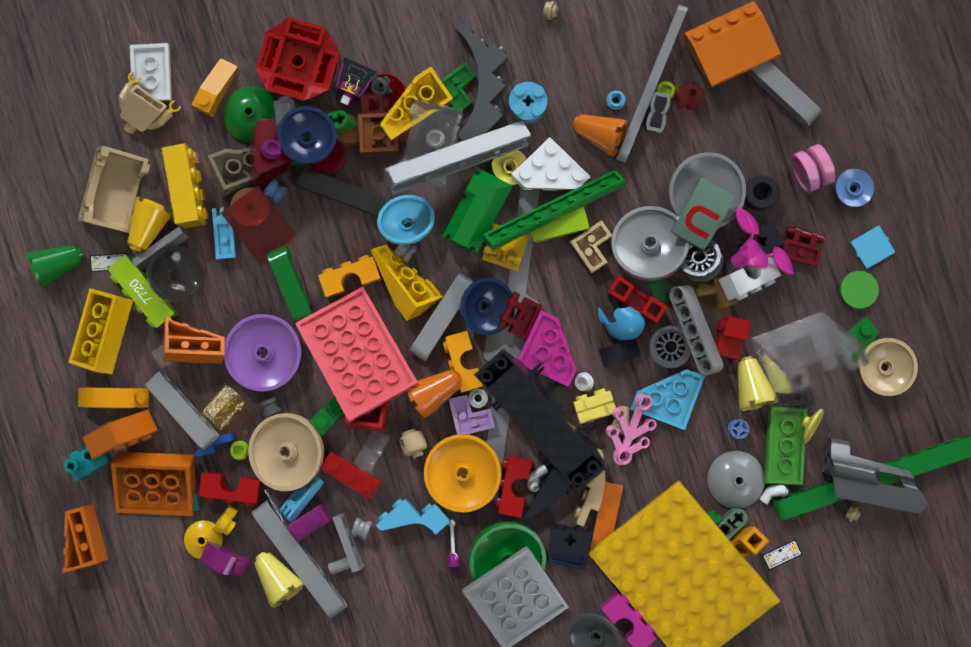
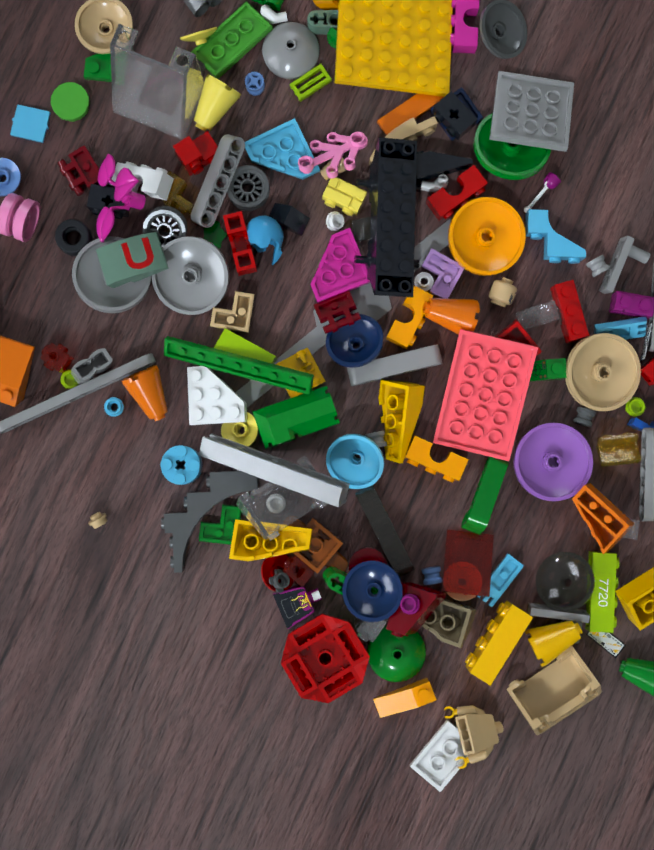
camera: 140 degrees left, 0 degrees up
(698, 468) = (297, 92): none -> lime tile

